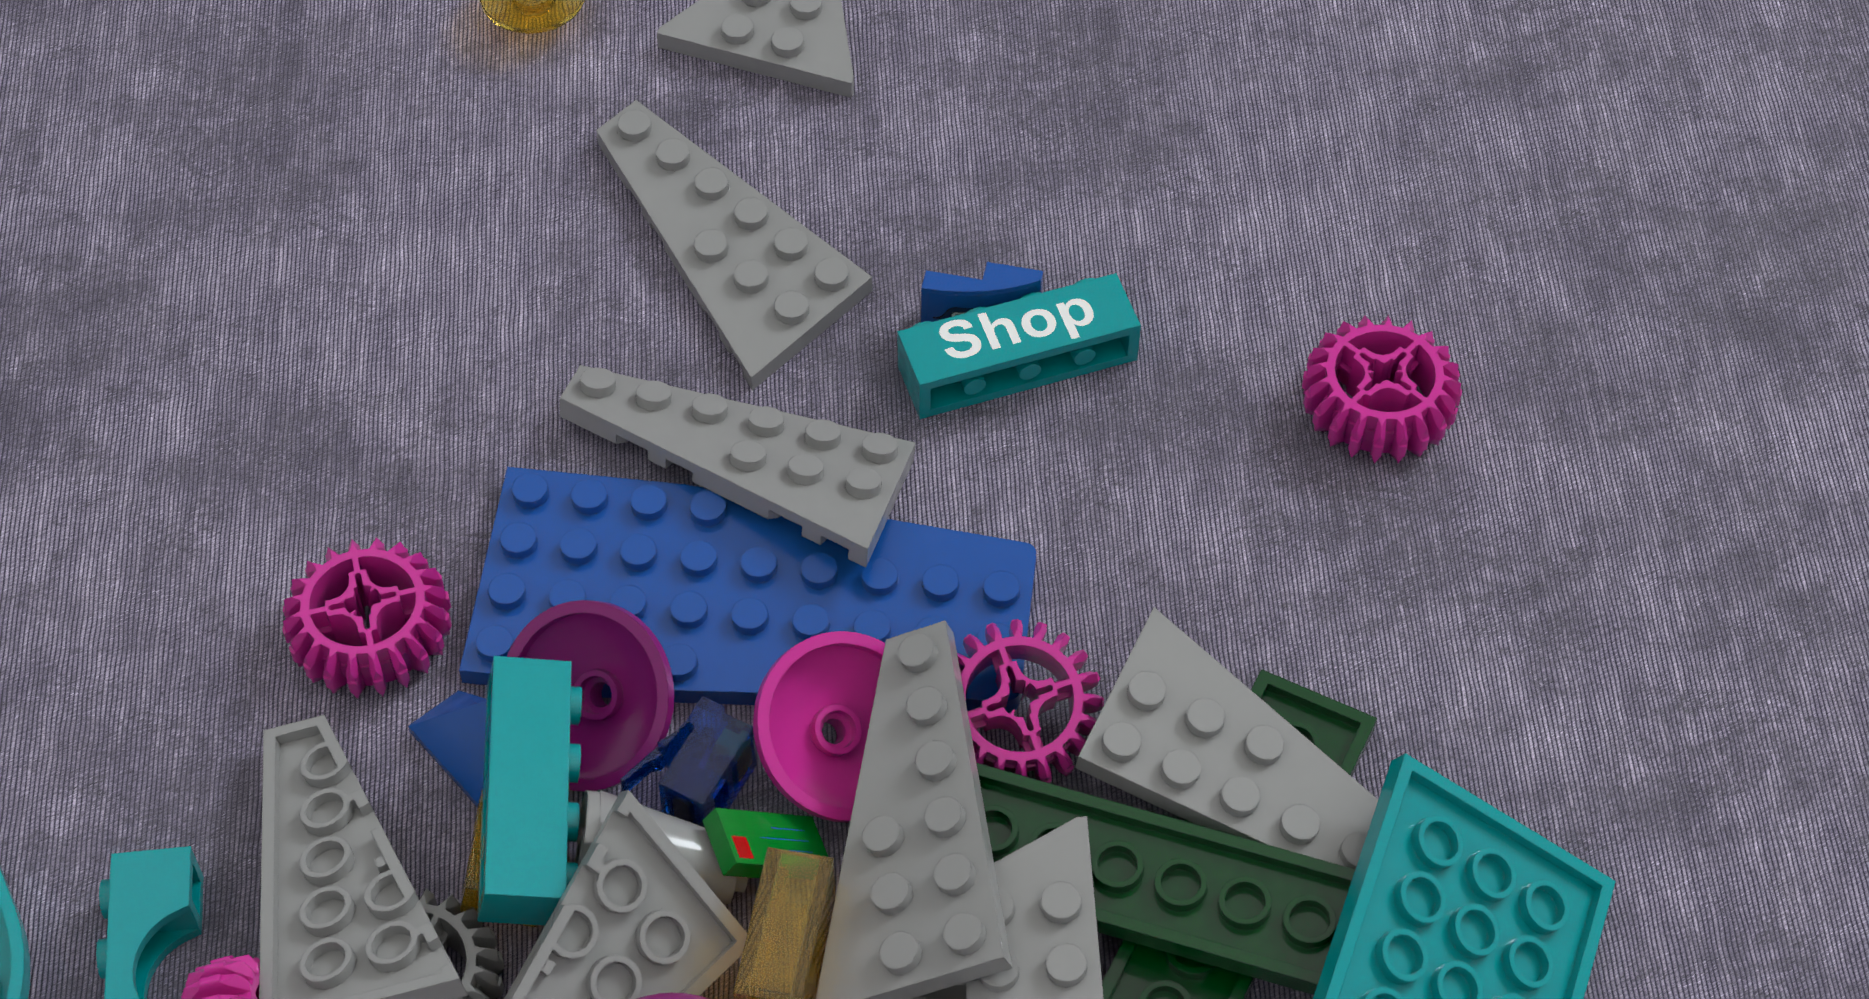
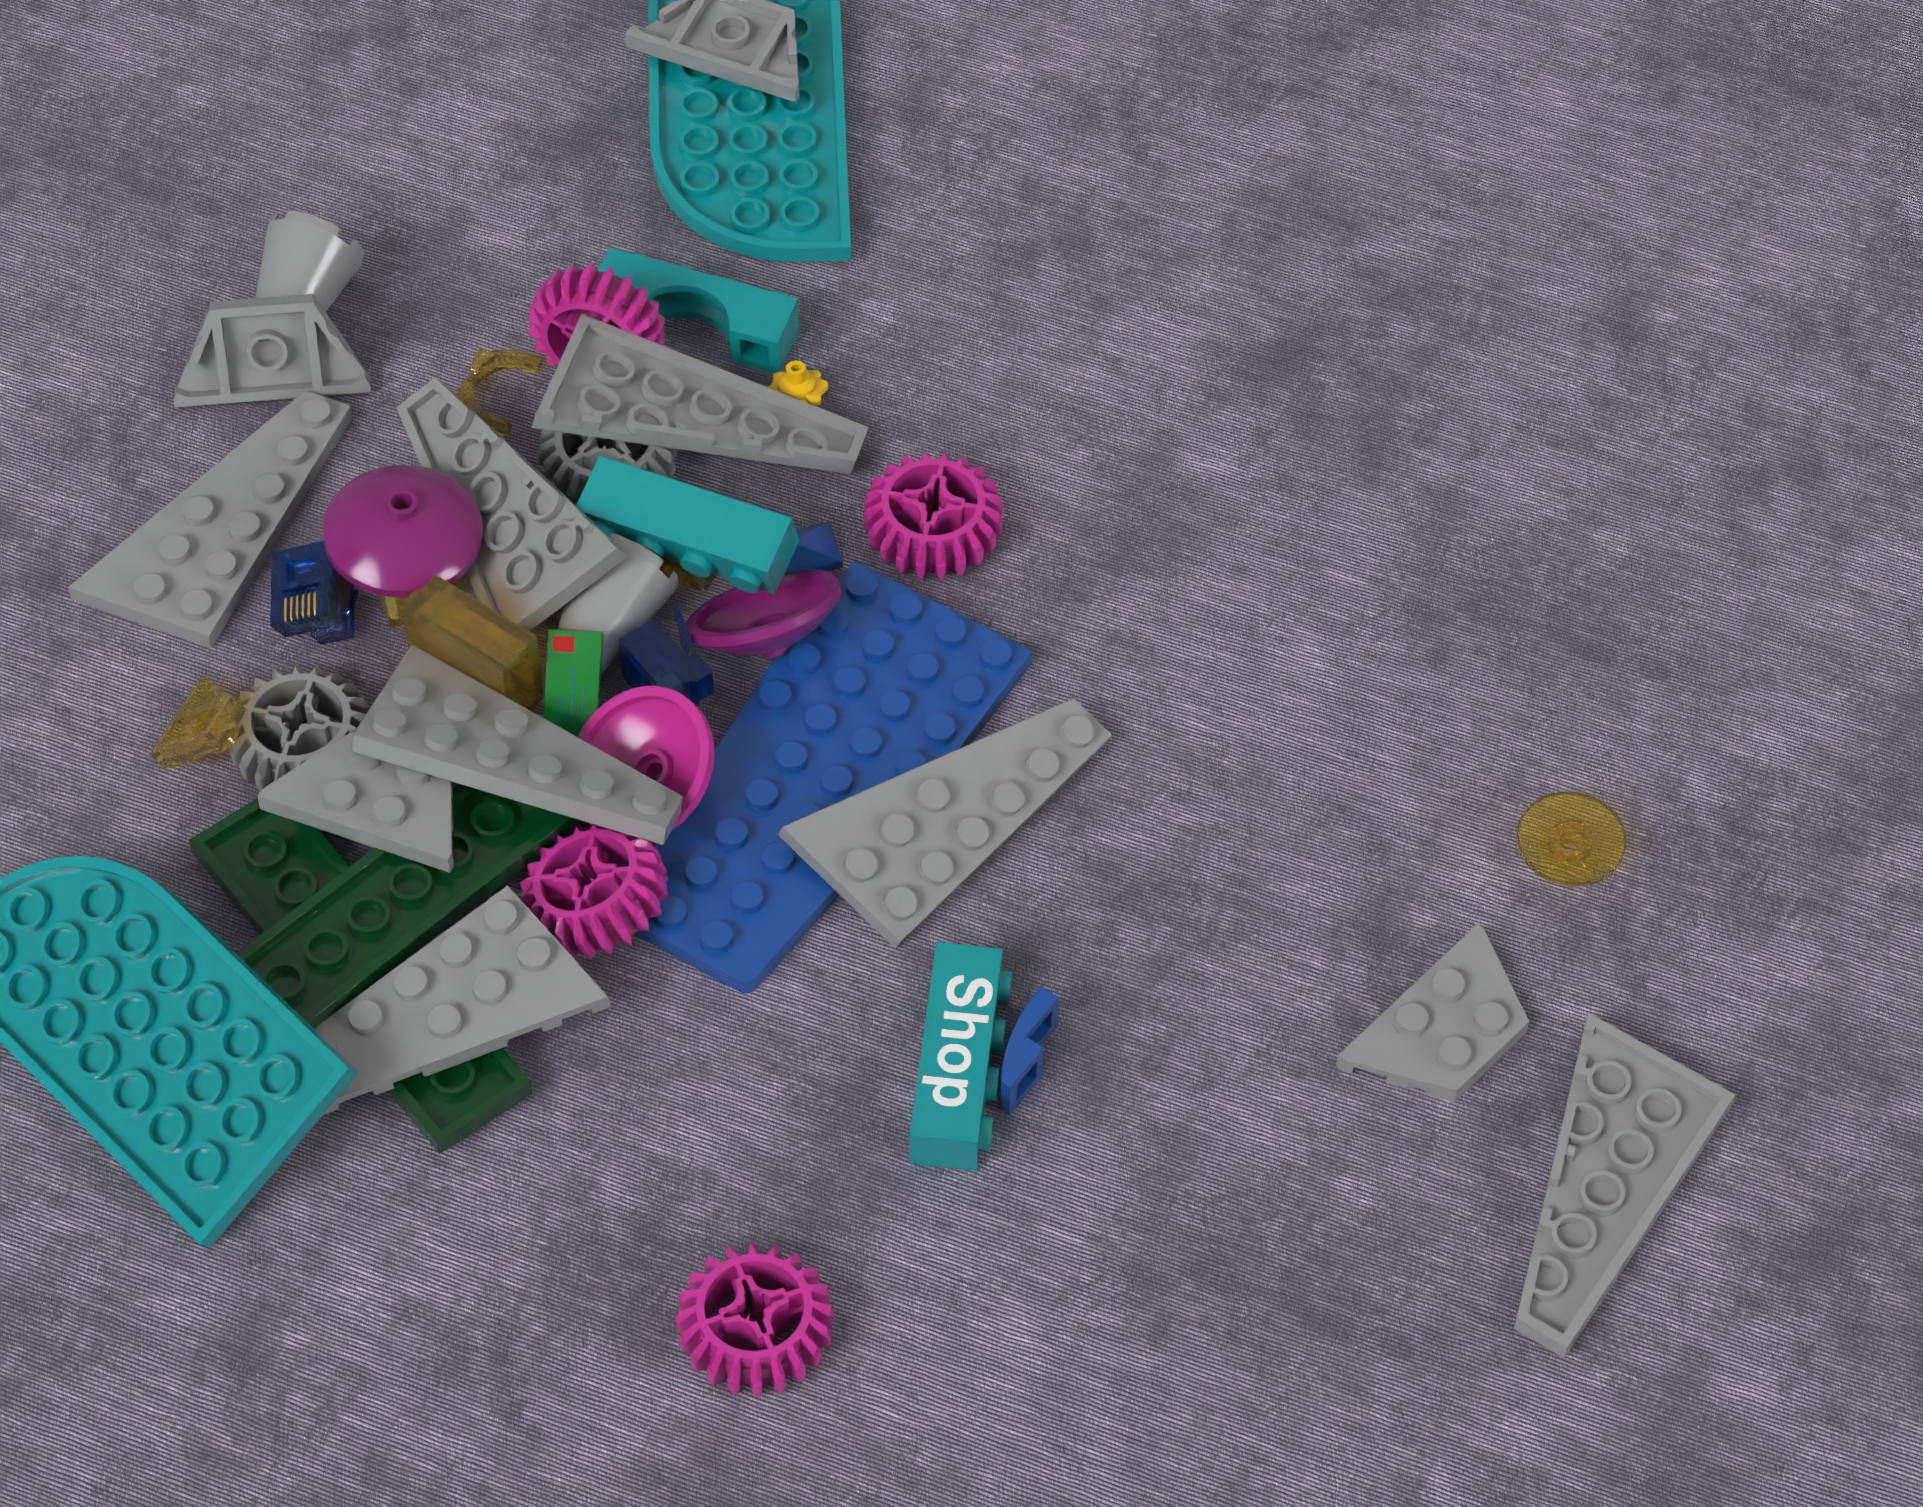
camera: 115 degrees right, 0 degrees up
(230, 826) = (800, 383): none -> yellow plant
(740, 254) = (1177, 902): light grey wing -> none

